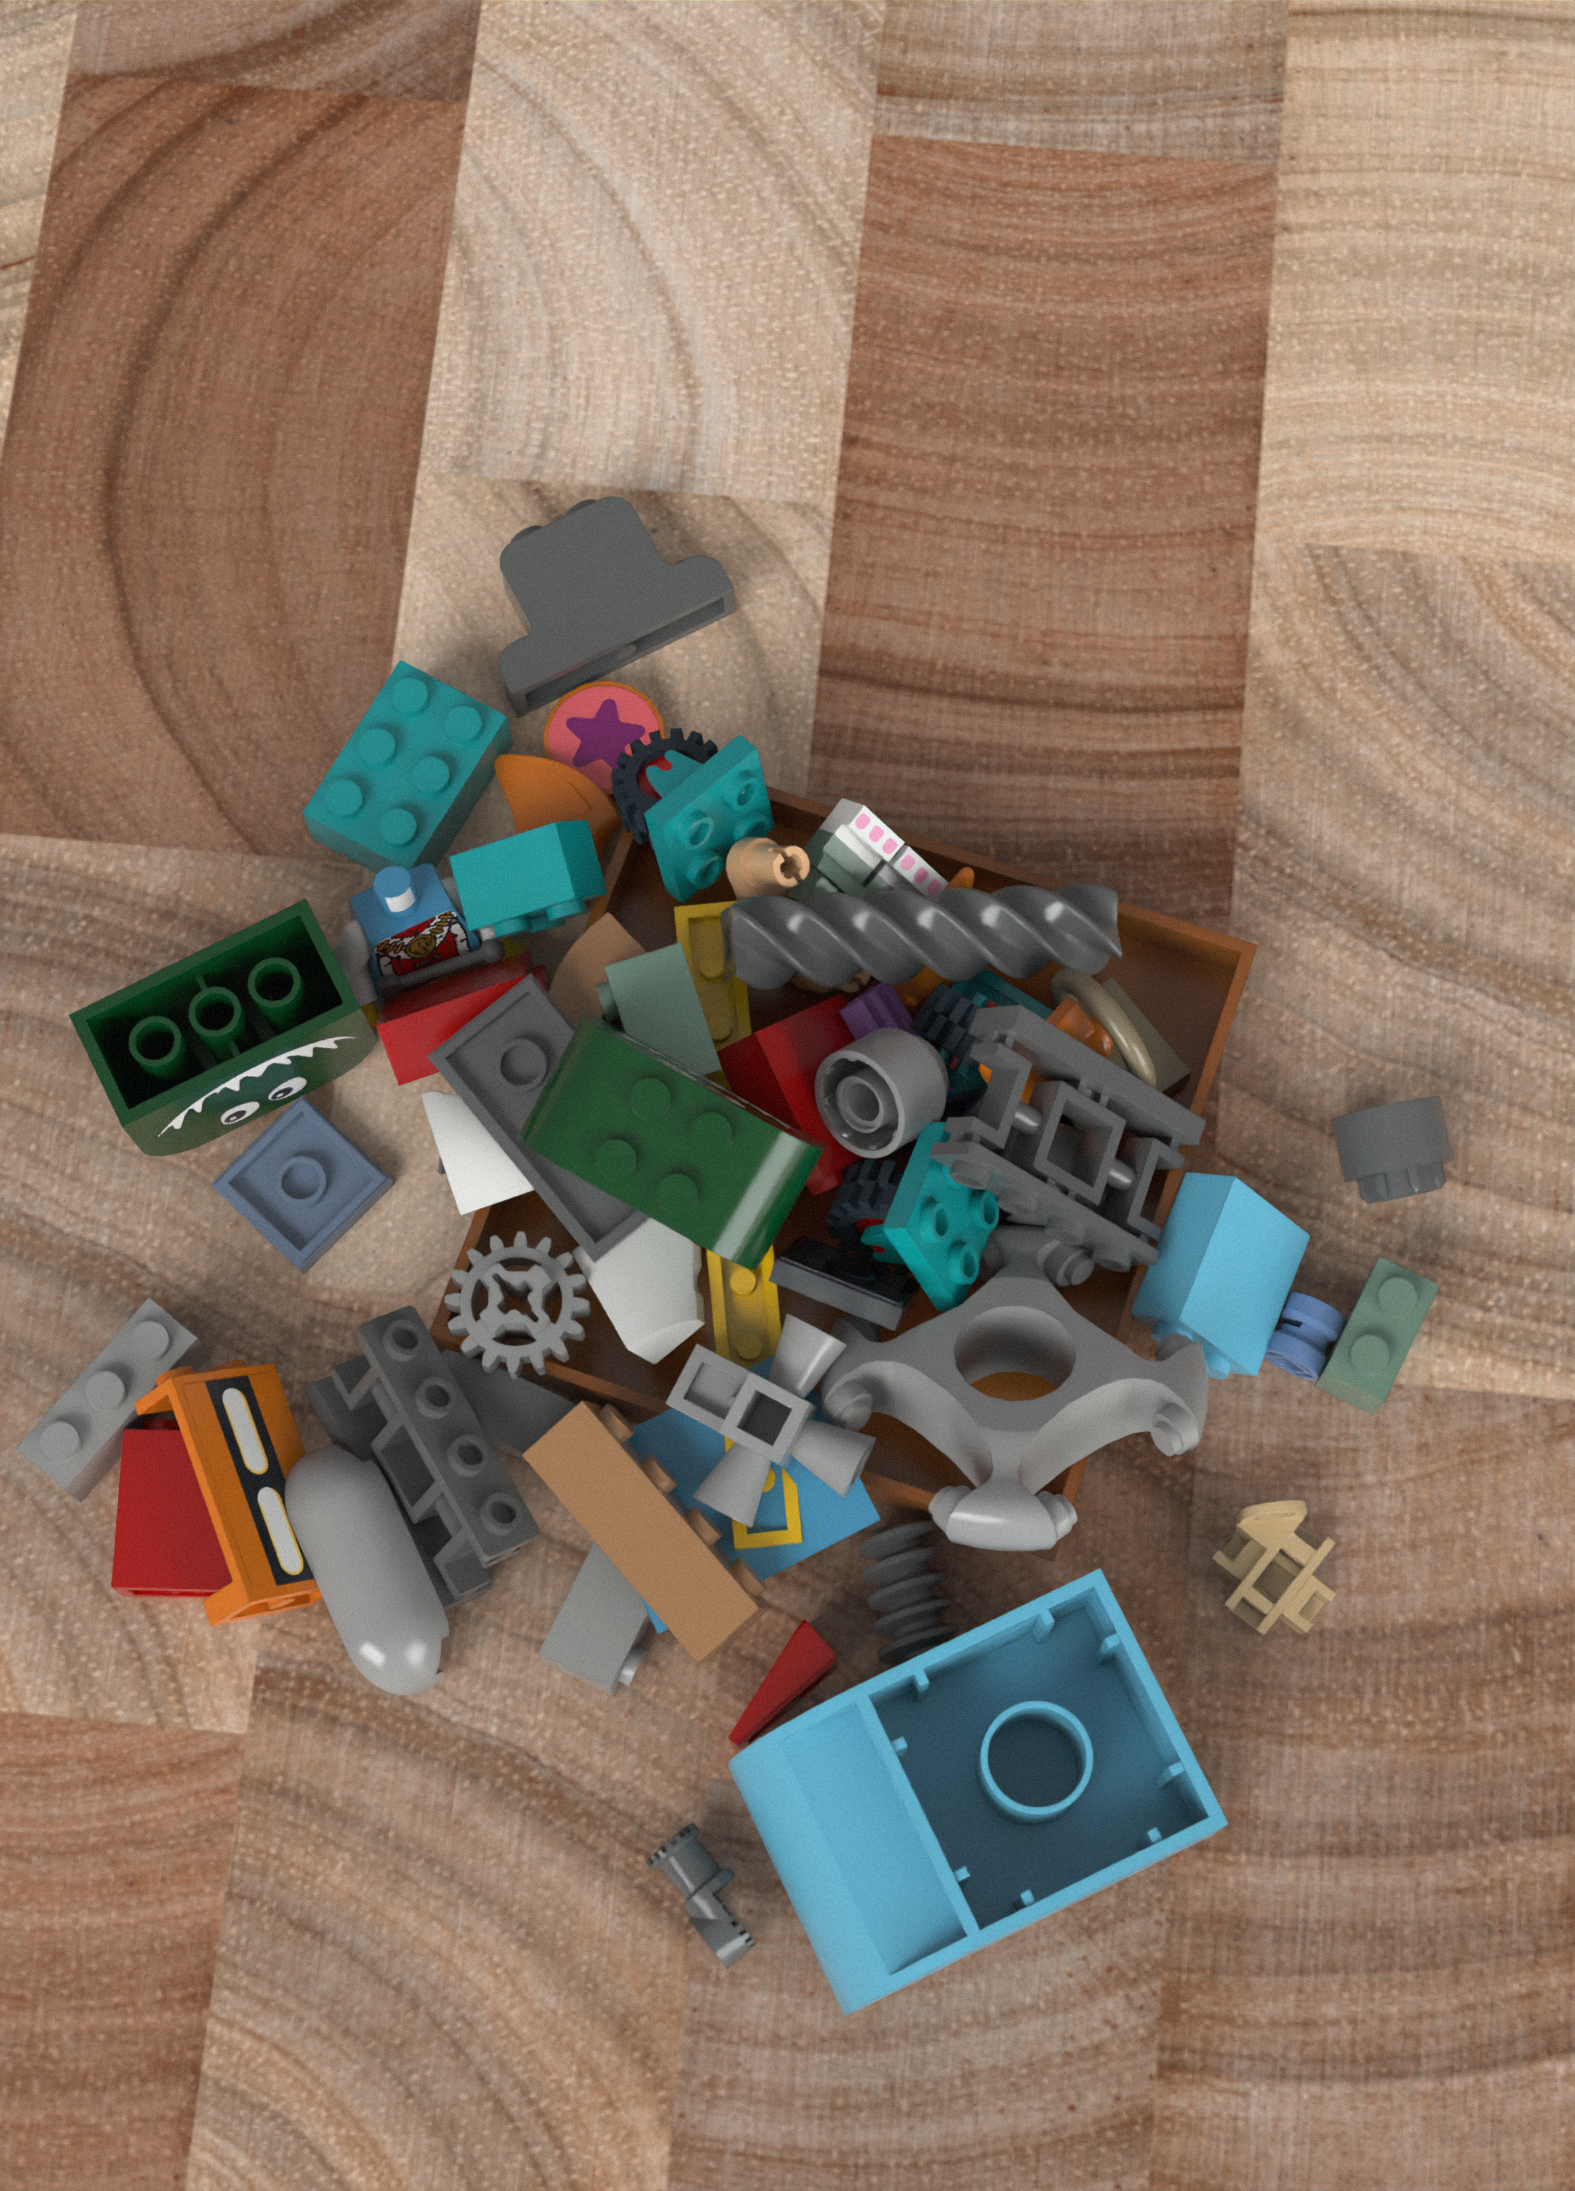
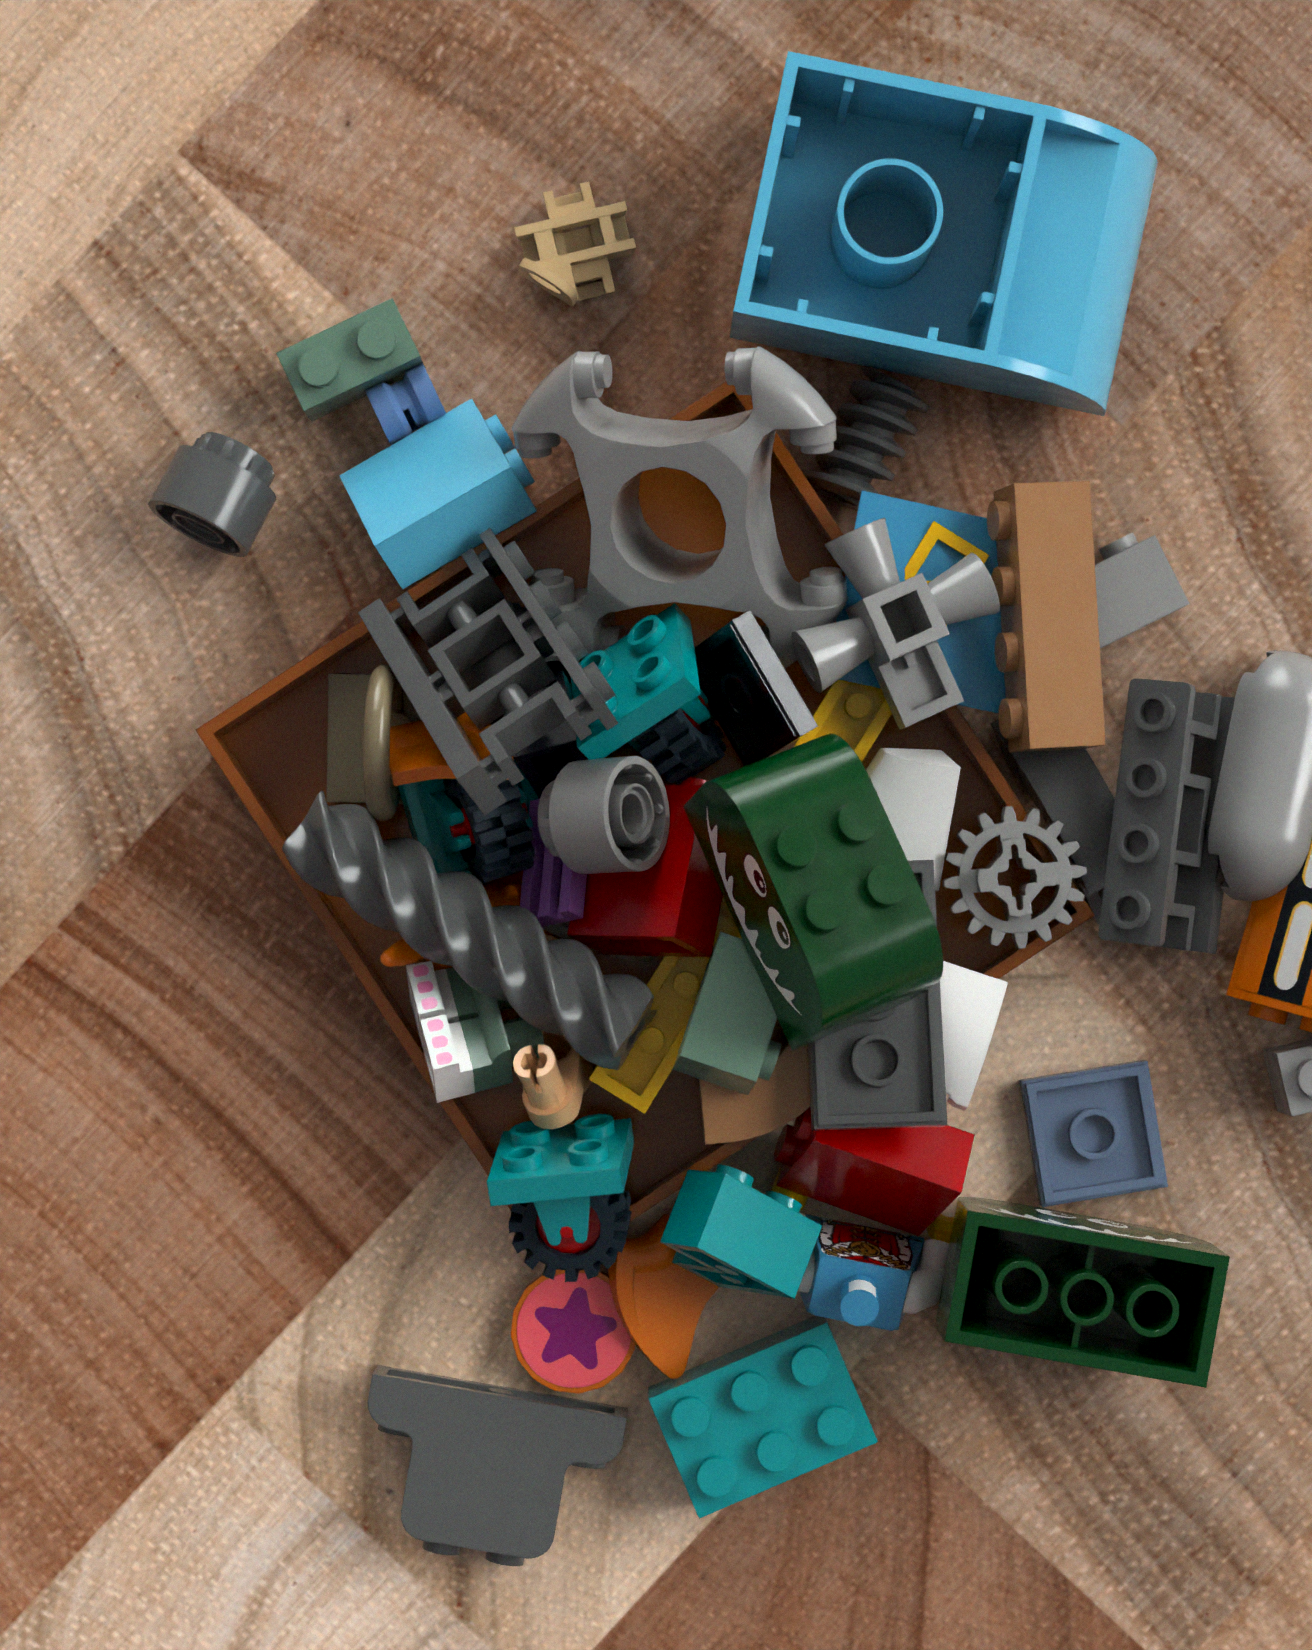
camera: 145 degrees left, 15 degrees up
(393, 985) = (905, 1237): dark grey hinge -> none
(698, 1881) = (1188, 346): dark grey connector -> none
(795, 1674) = (996, 446): red slope -> none

